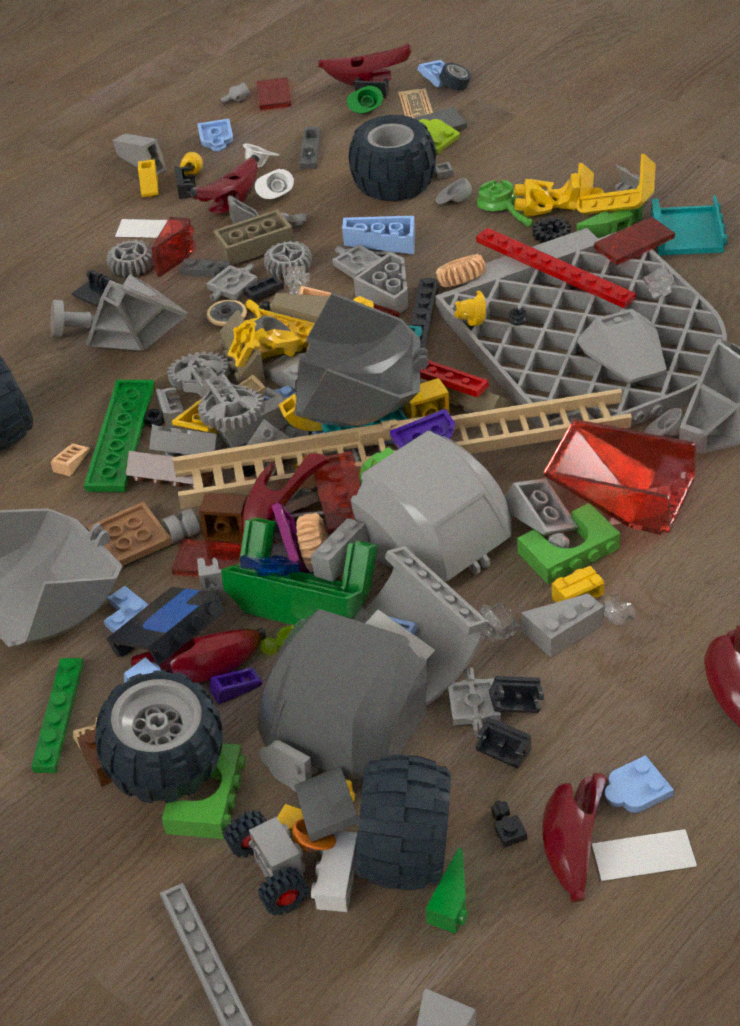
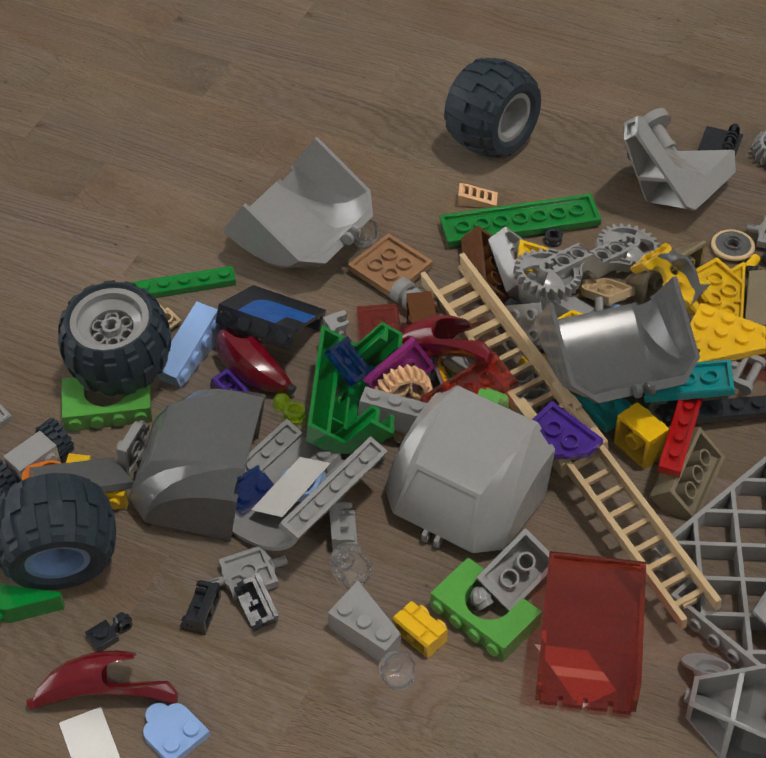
camera: 70 degrees right, 5 degrees up
(128, 606) = (308, 292): light blue plate -> none
(170, 406) = (570, 237): light grey hinge -> none

